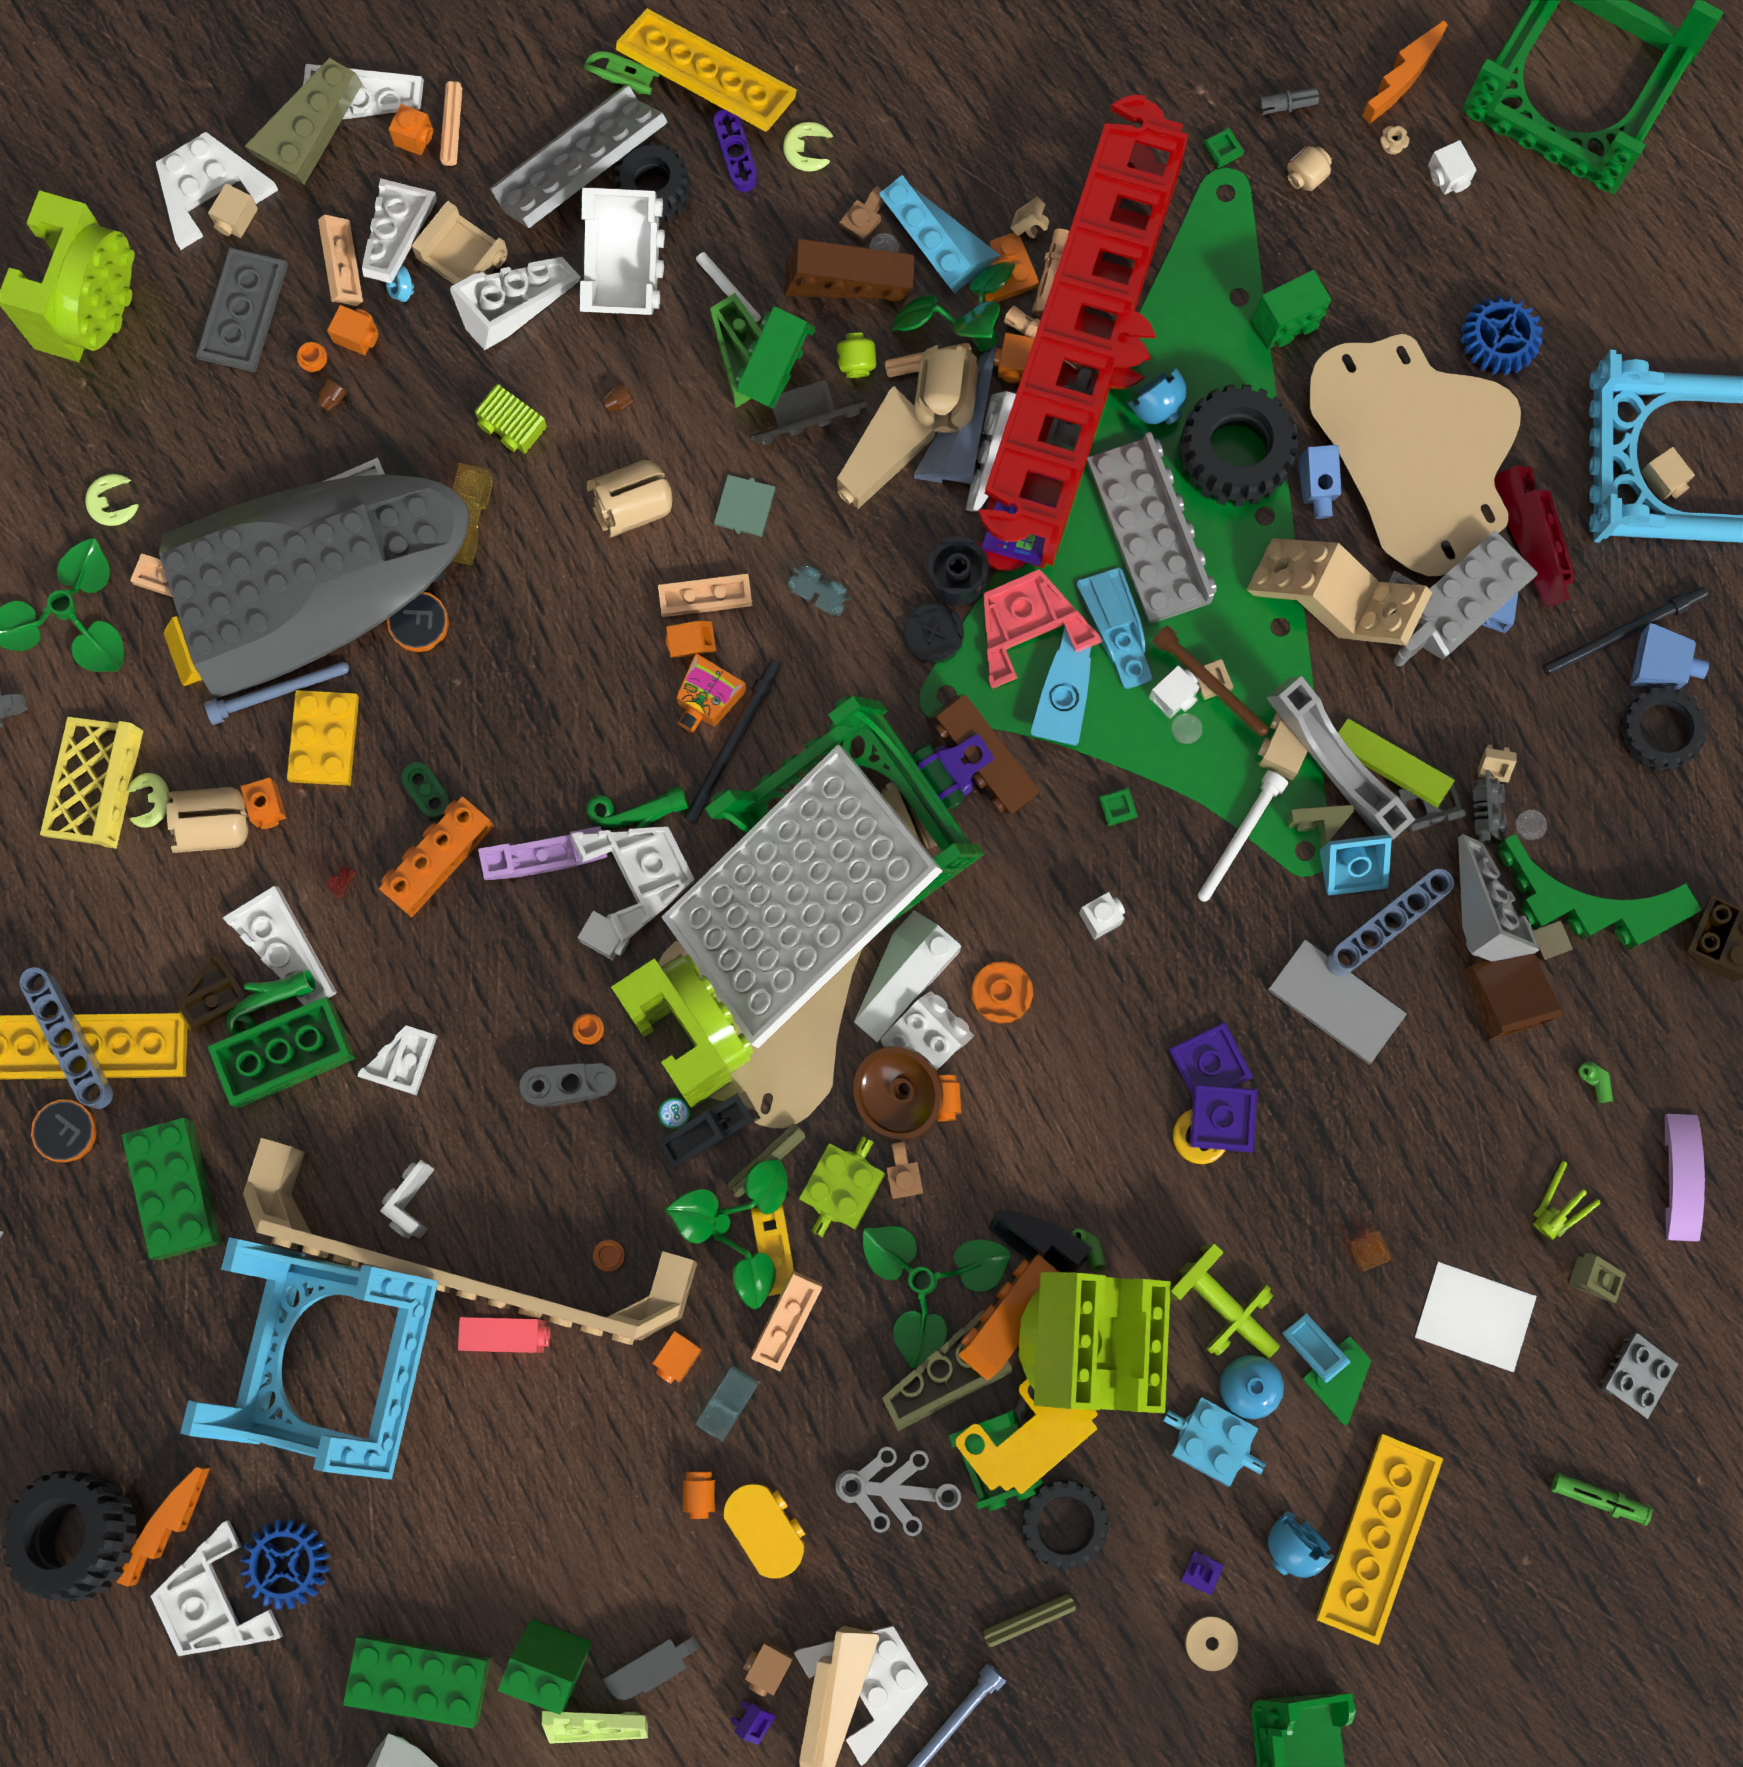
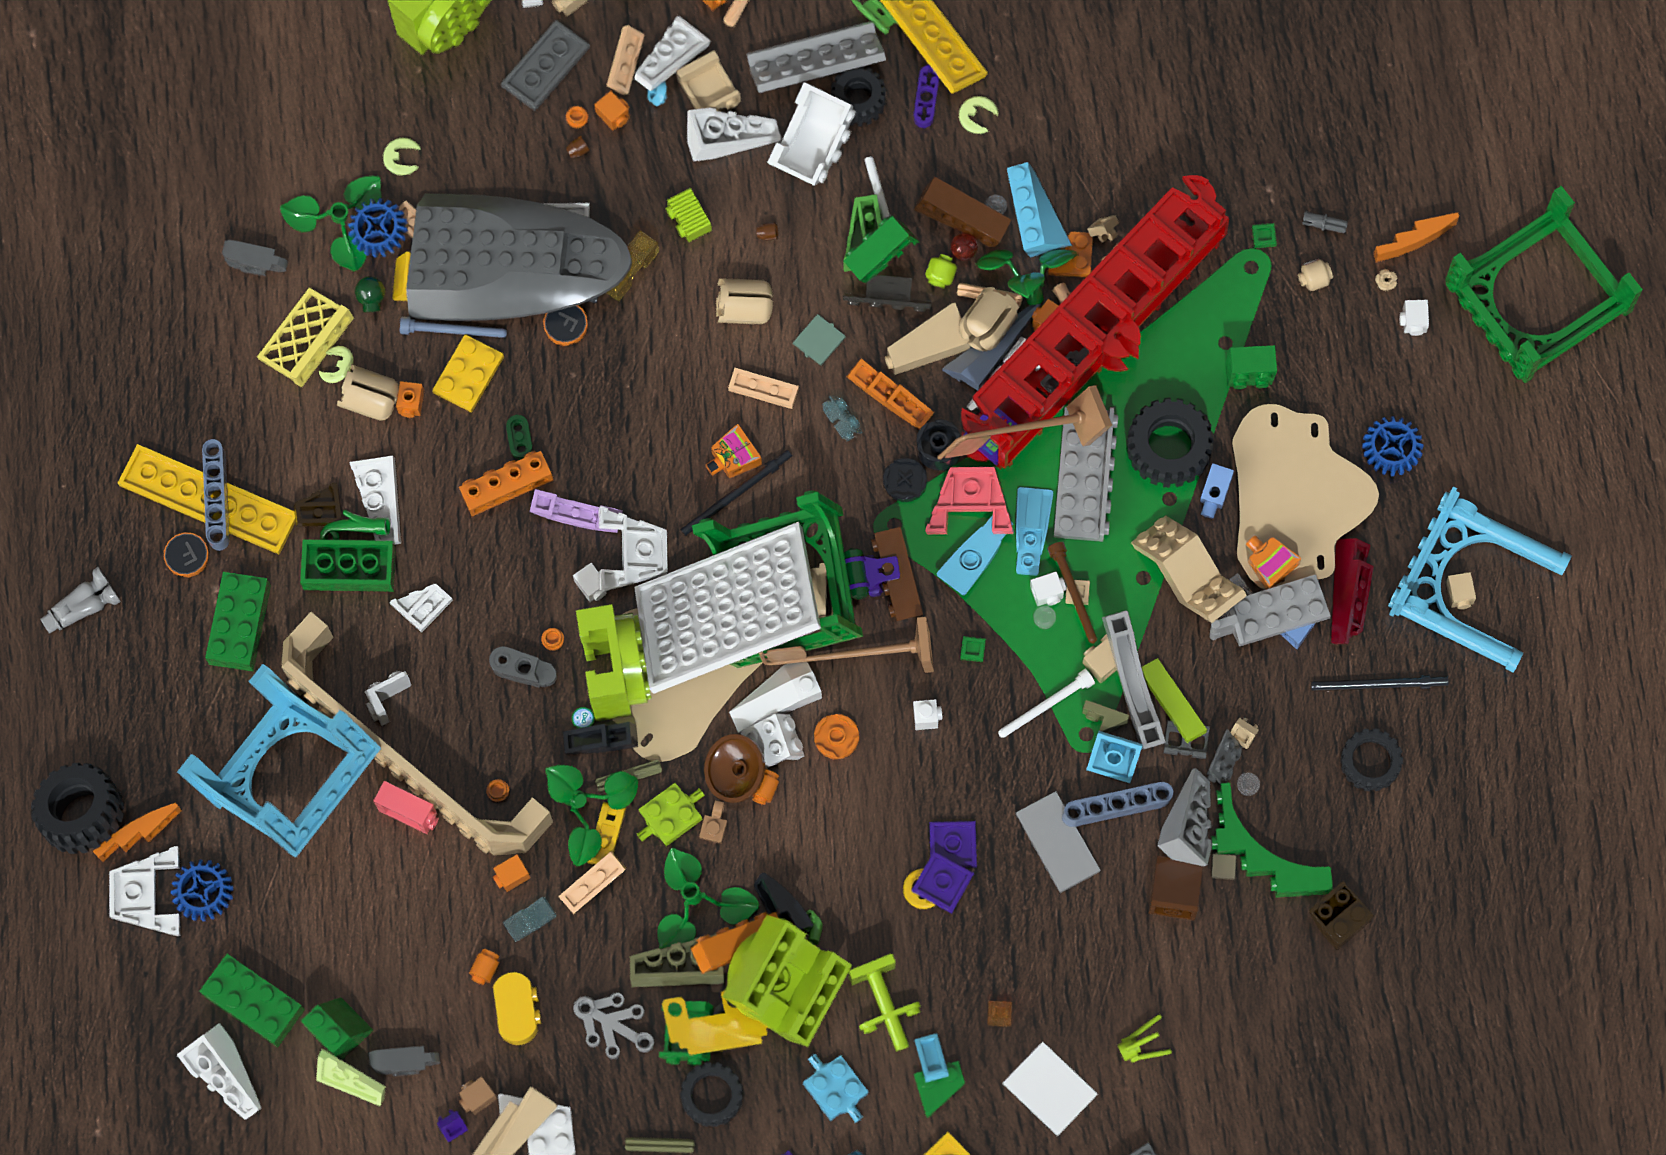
camera: 30 degrees right, 5 degrees down
(117, 614) = (391, 240): none -> blue gear
(150, 691) = (370, 293): none -> dark green piece
(339, 884) = (435, 473): clear red tile -> none
(643, 814) = (654, 514): green plant -> none
(690, 638) = (739, 413): orange brick -> none
(863, 218) = (991, 179): medium nougat plate -> none
(865, 535) = (890, 394): none -> orange slope
(870, 313) = (964, 246): none -> clear red piece
(1056, 832) = (920, 645): none -> medium nougat piece
(1123, 453) = (1085, 413): none -> medium nougat piece
(1161, 399) = (1133, 389): dark azure cylinder -> none
(1251, 1387) = (877, 1064): dark azure cylinder -> none
(1432, 537) = (1271, 561): none -> orange torso
(1597, 1078) = (1209, 970): bright green arm -> none
(1597, 1277) = (1143, 1098): olive slope -> none
(1665, 659) = (1395, 714): medium blue torso -> none
(1685, 1177) = (1234, 1061): lavender slope -> none

